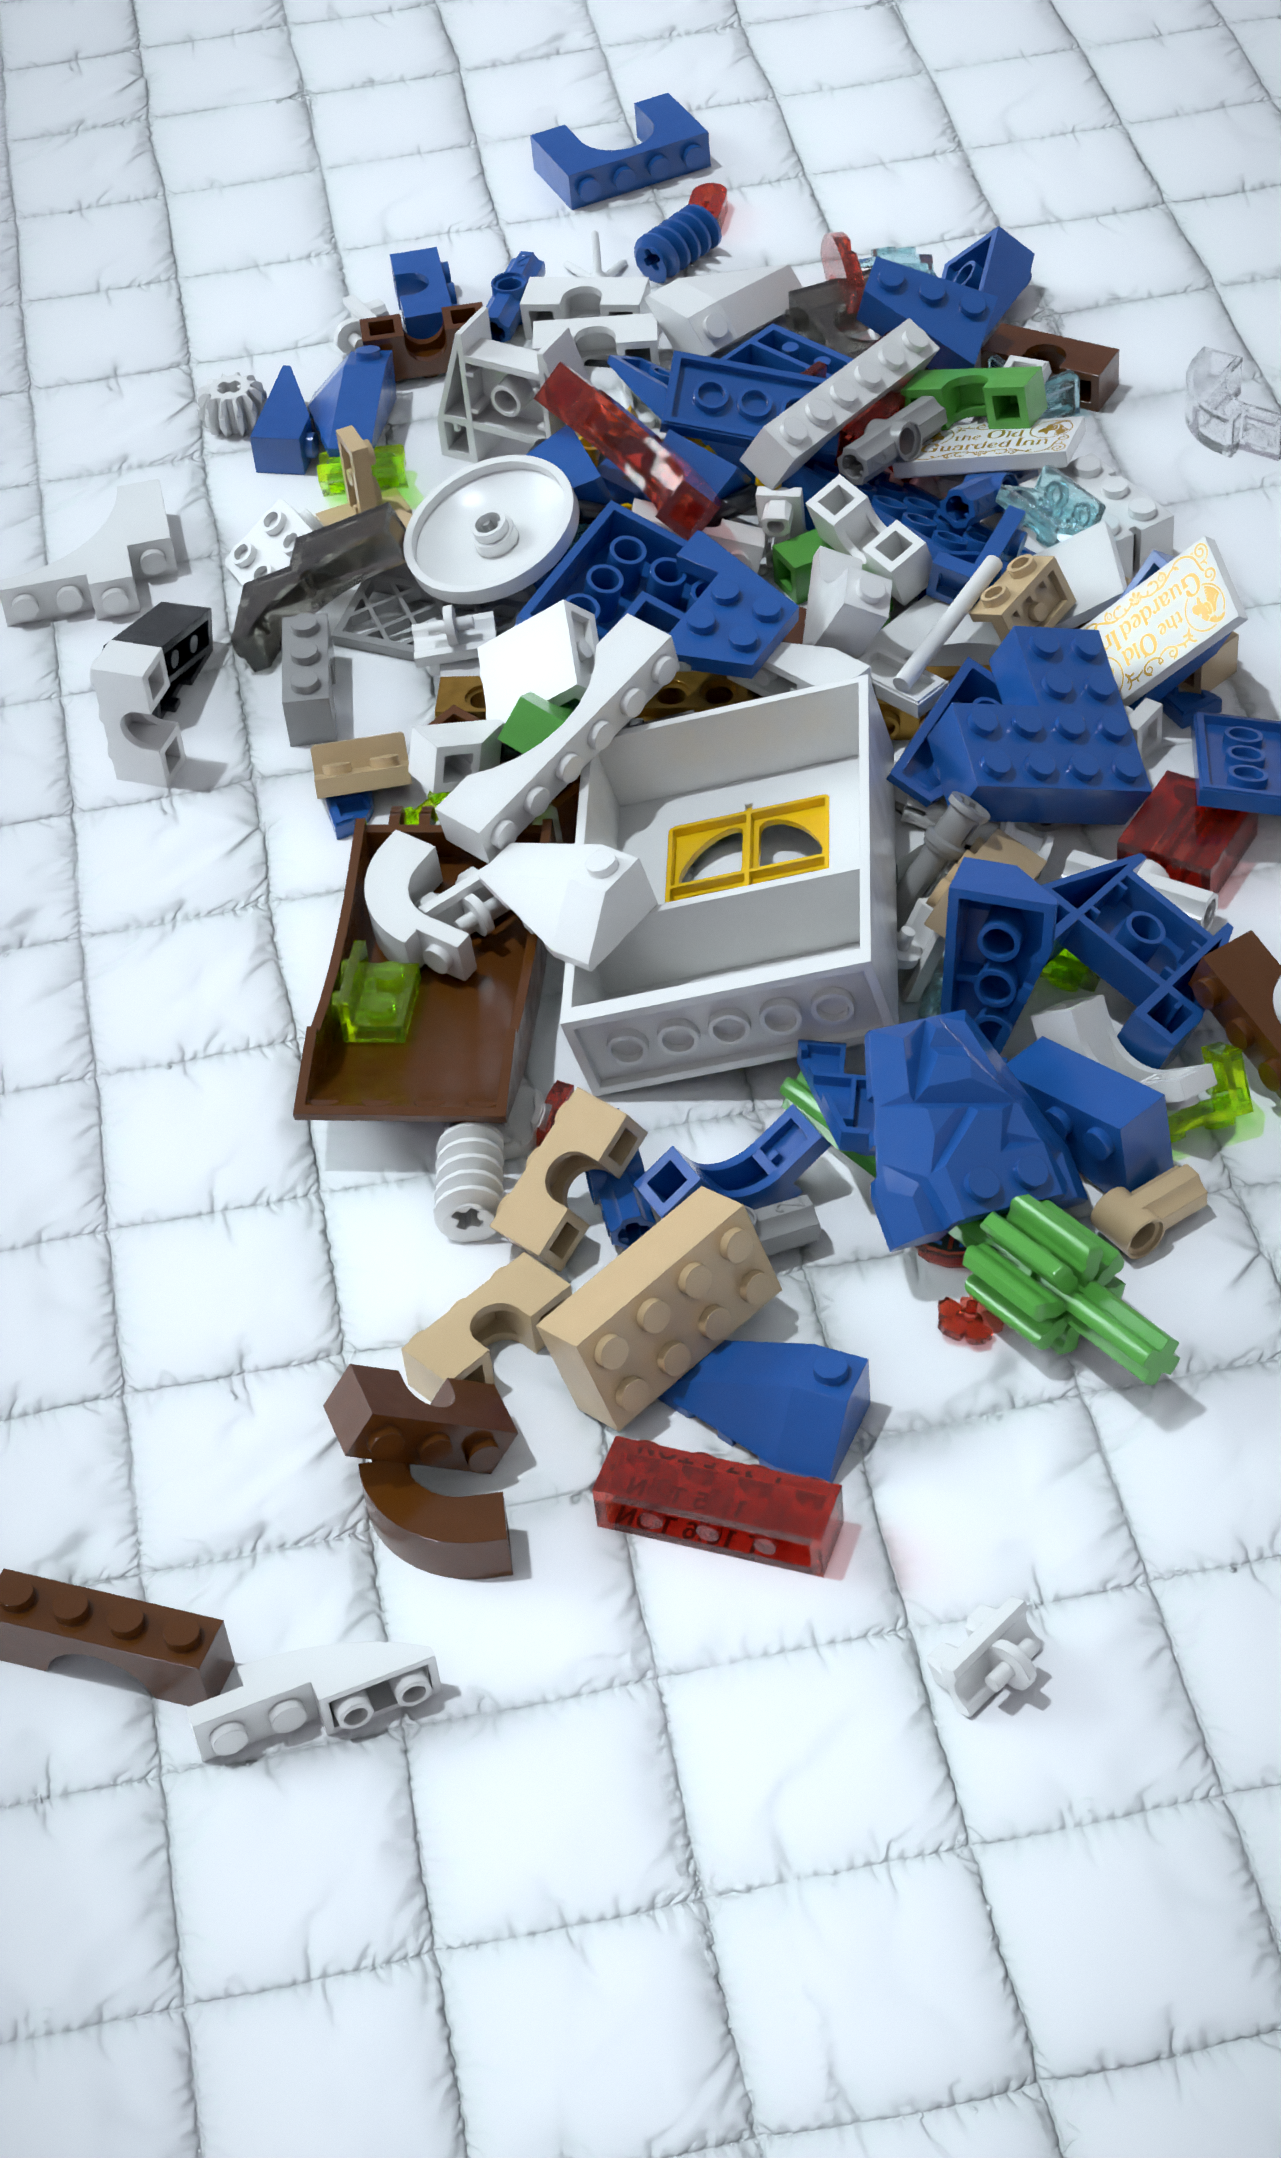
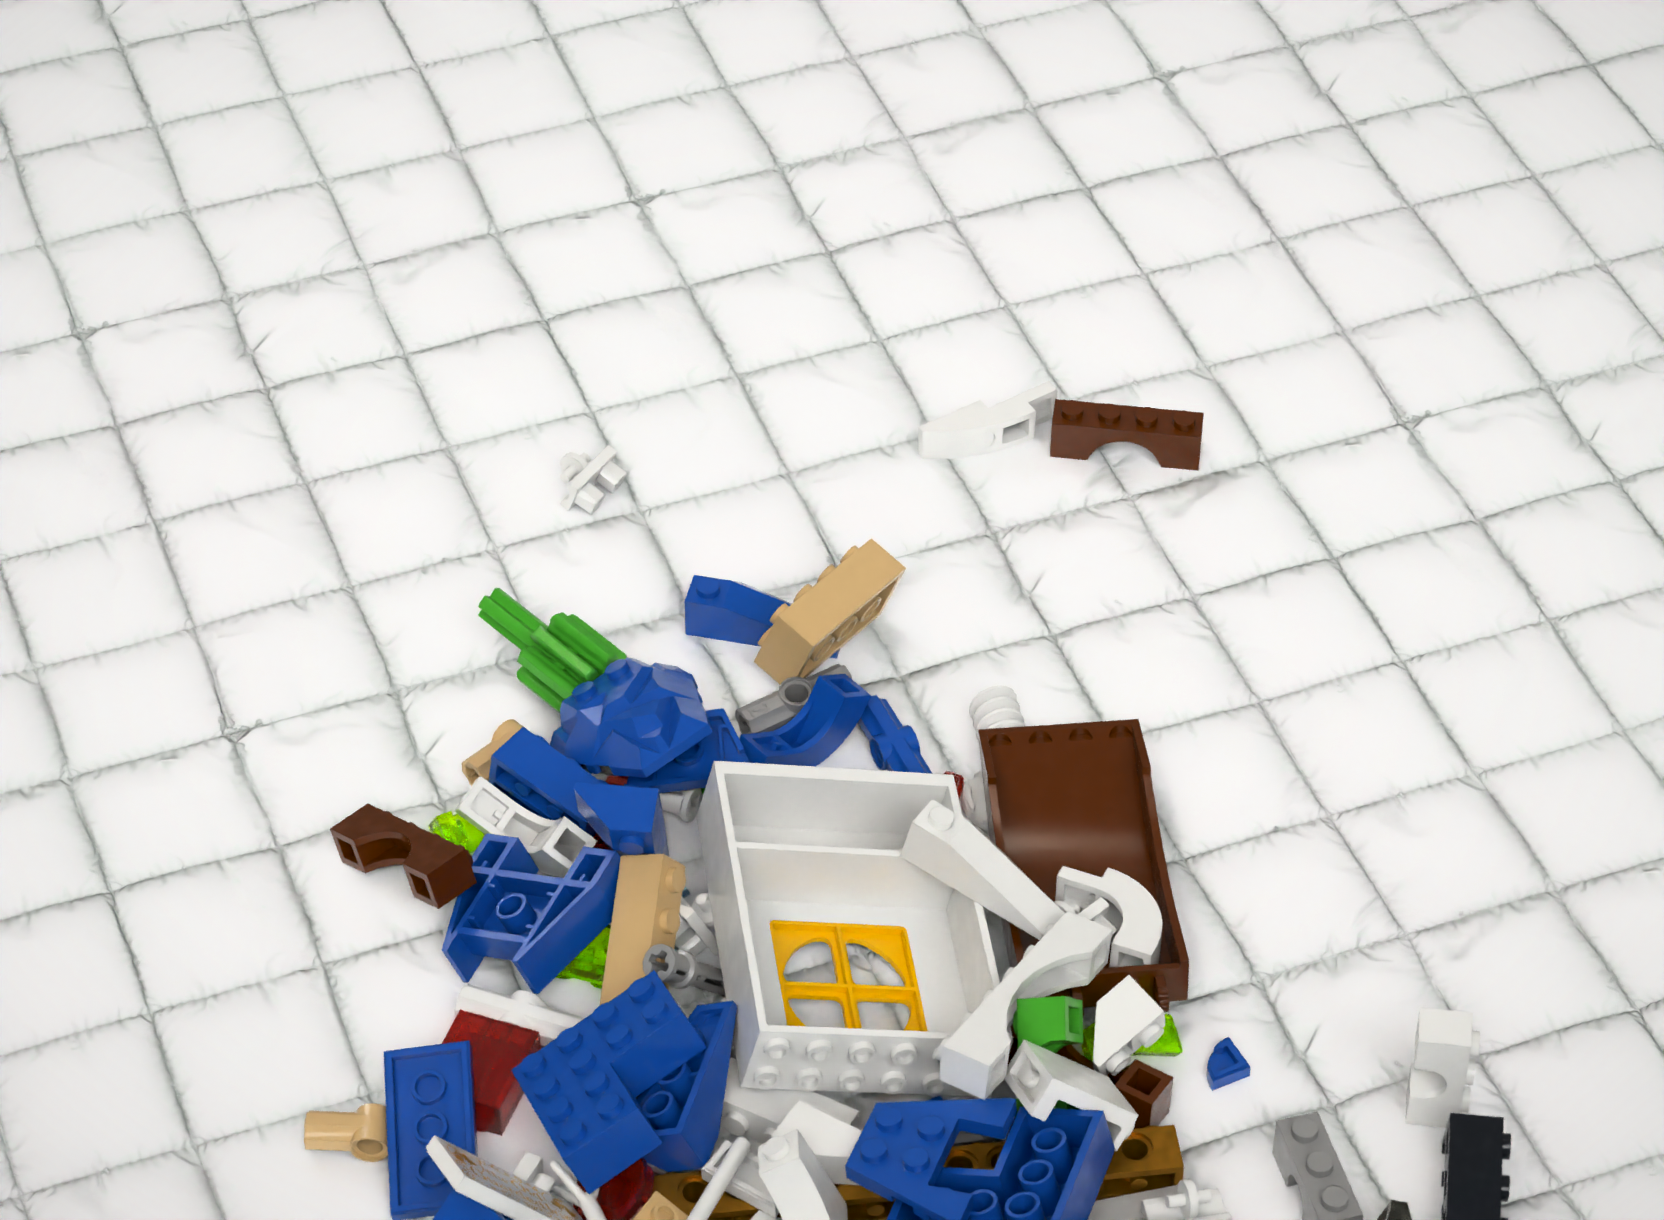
camera: 165 degrees right, 0 degrees up
(360, 764) = (1223, 1081): tan bracket -> none
(375, 998) = (1122, 845): clear neon green bracket -> none
(384, 1421) = (944, 553): reddish brown arch -> none
(434, 1531) = (954, 514): reddish brown arch -> none
(498, 1310) = (969, 614): tan arch -> none
(583, 1138) = (923, 707): tan arch -> none
(719, 1505) = (767, 541): clear red brick -> none

